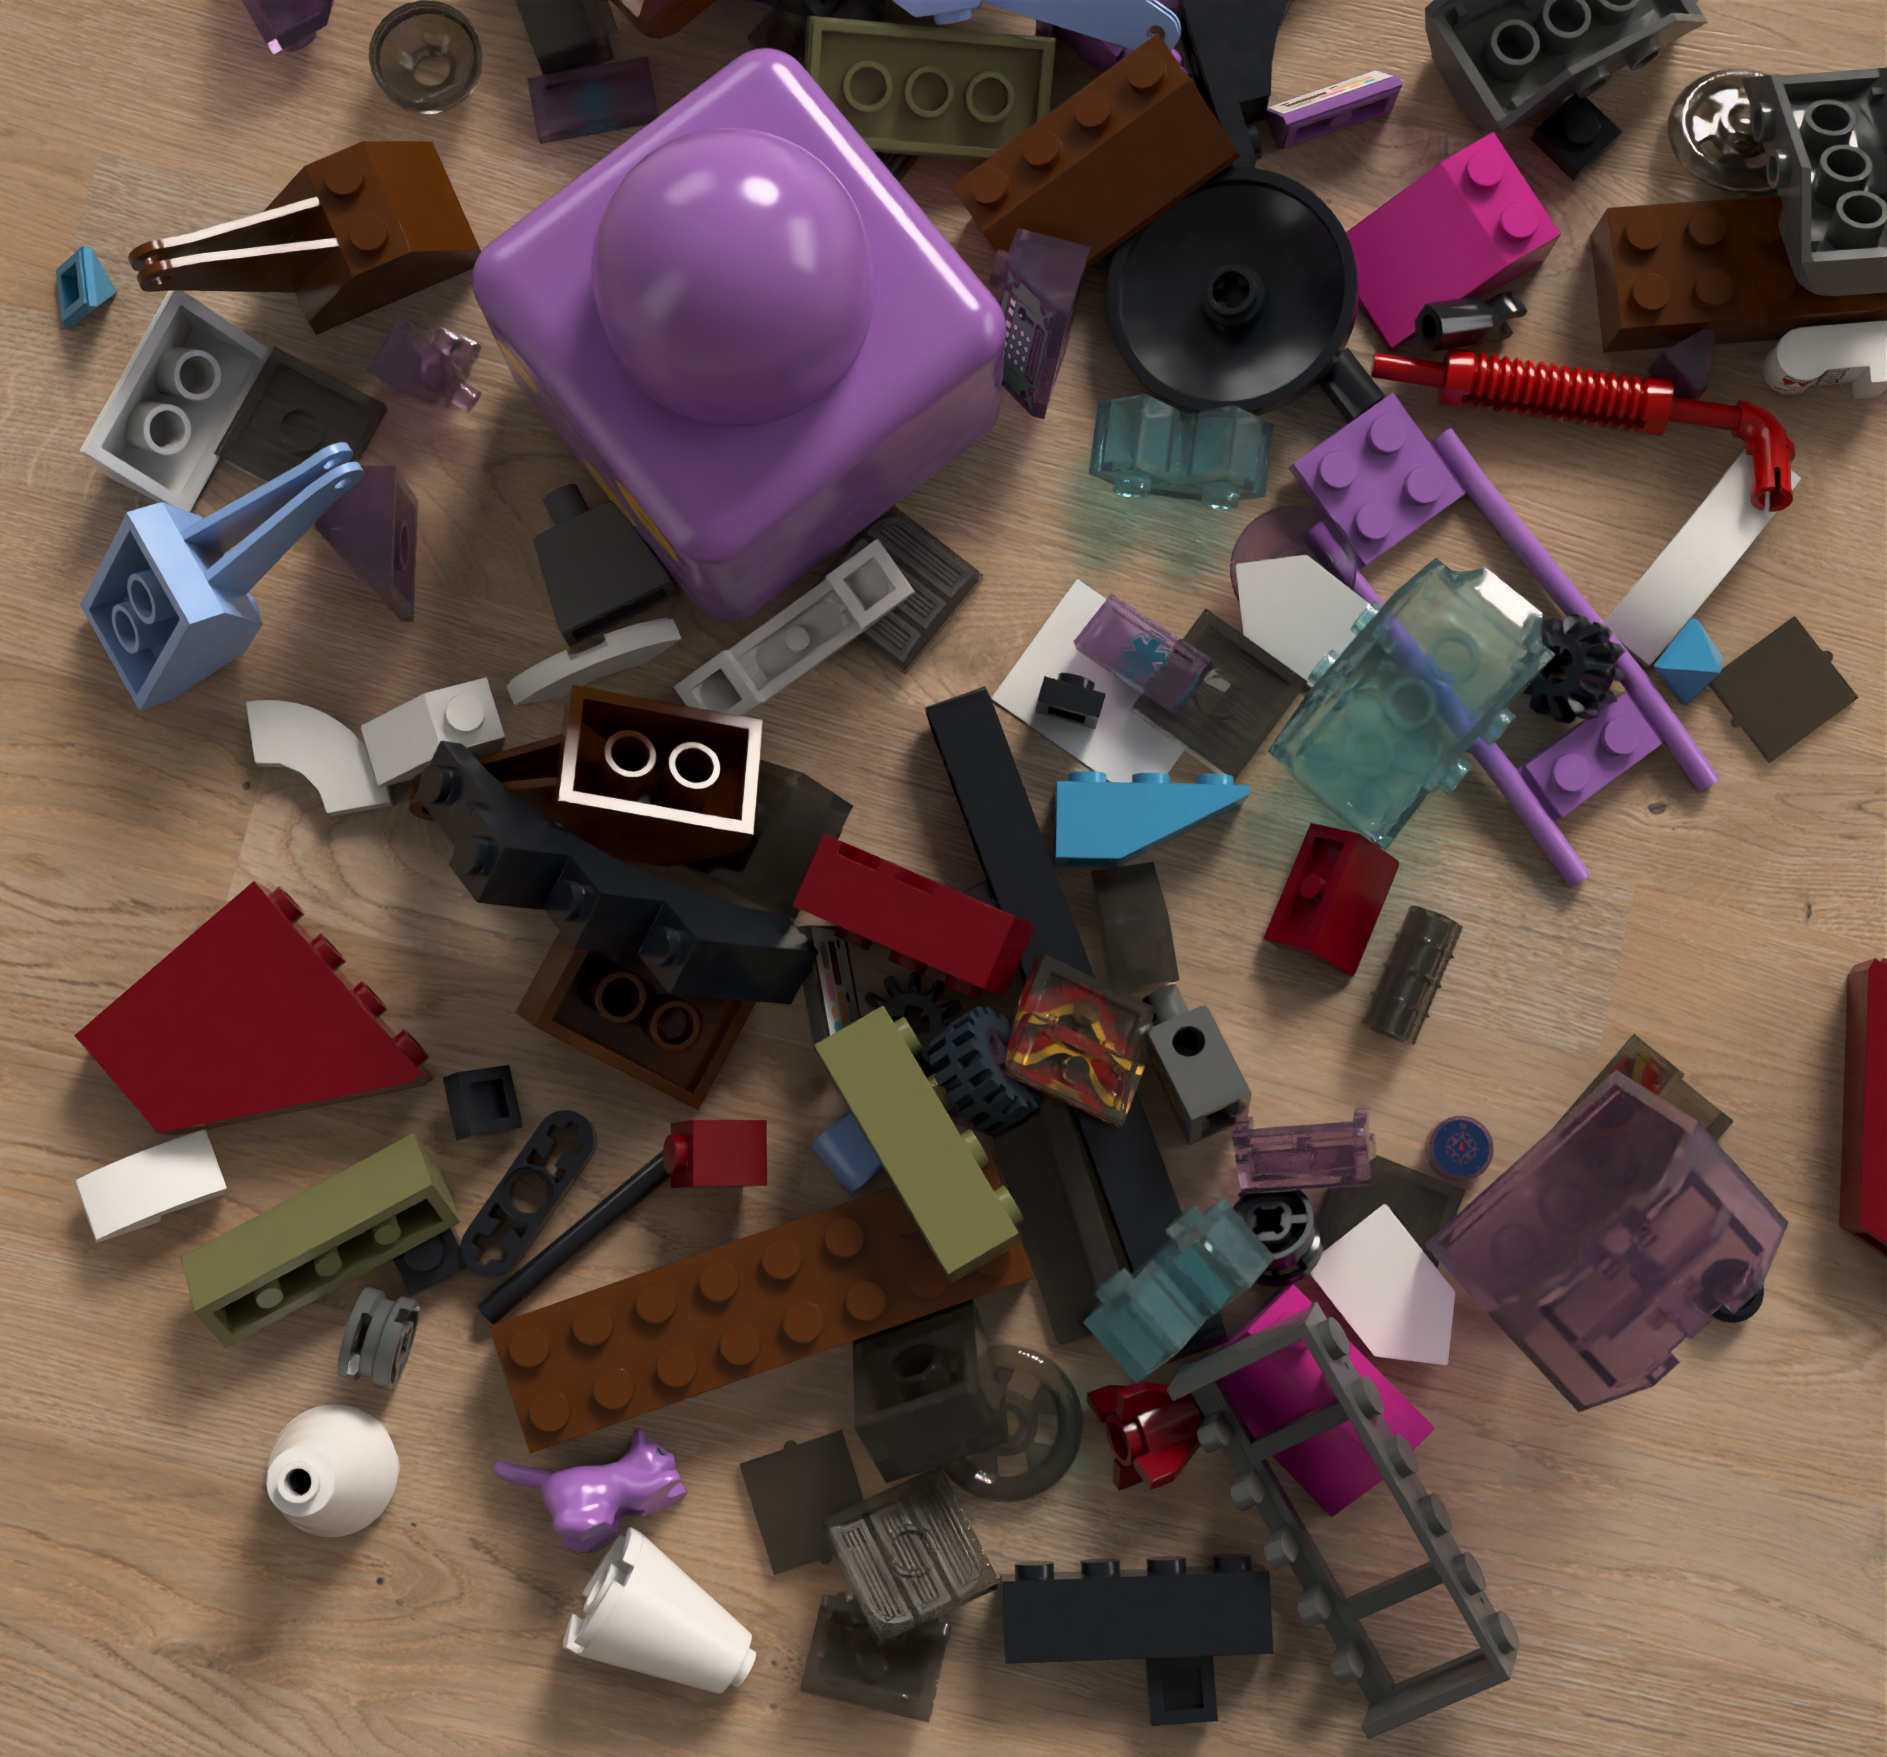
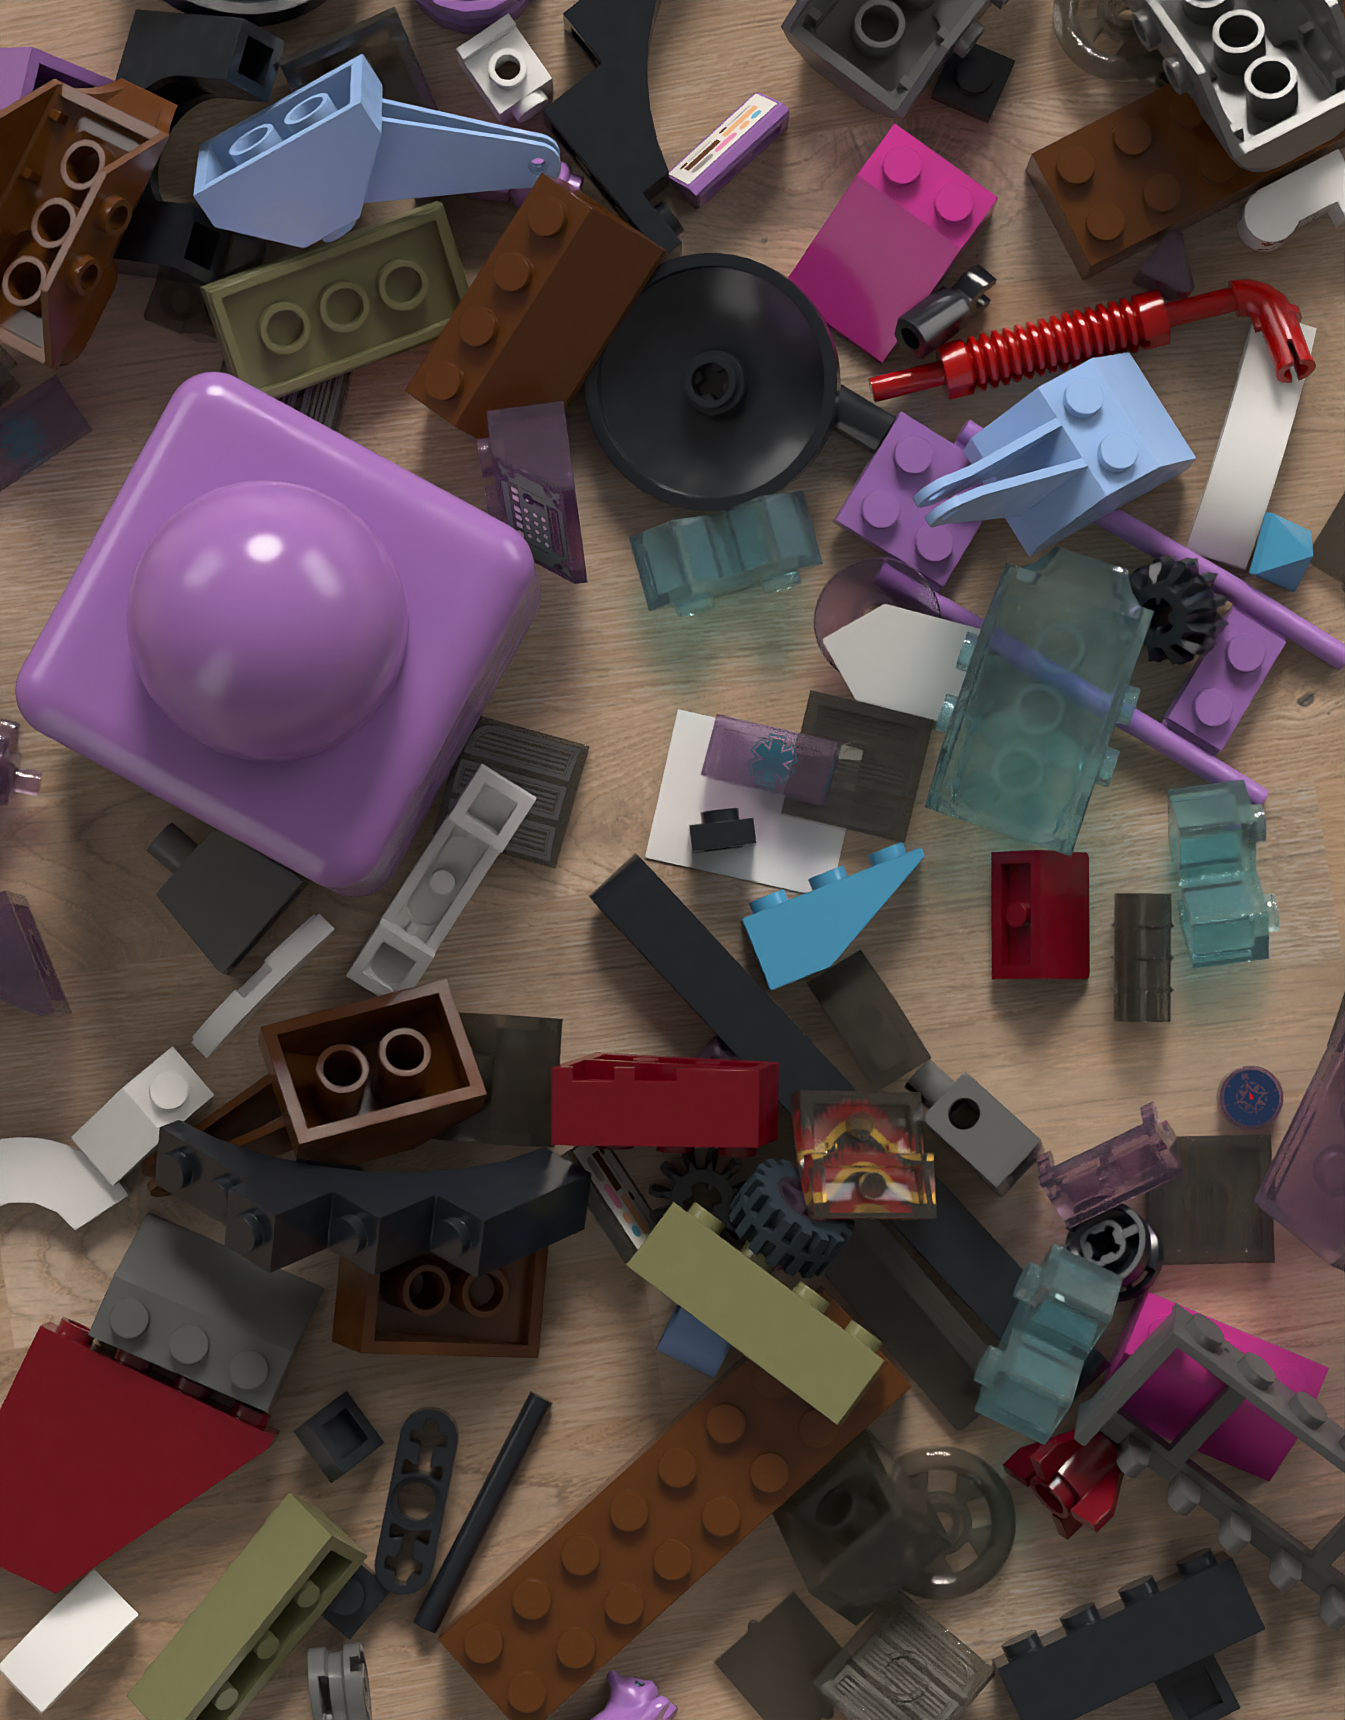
camera: 25 degrees left, 5 degrees up
(412, 937) = (206, 1312): none -> dark grey slope
(717, 1154) = (575, 1394): dark red brick -> none
(1389, 1290) = (1237, 1256): white sticker -> none
(1520, 901) = (1222, 899): none -> clear light blue brick
(1526, 485) = (1065, 455): none -> light blue slope

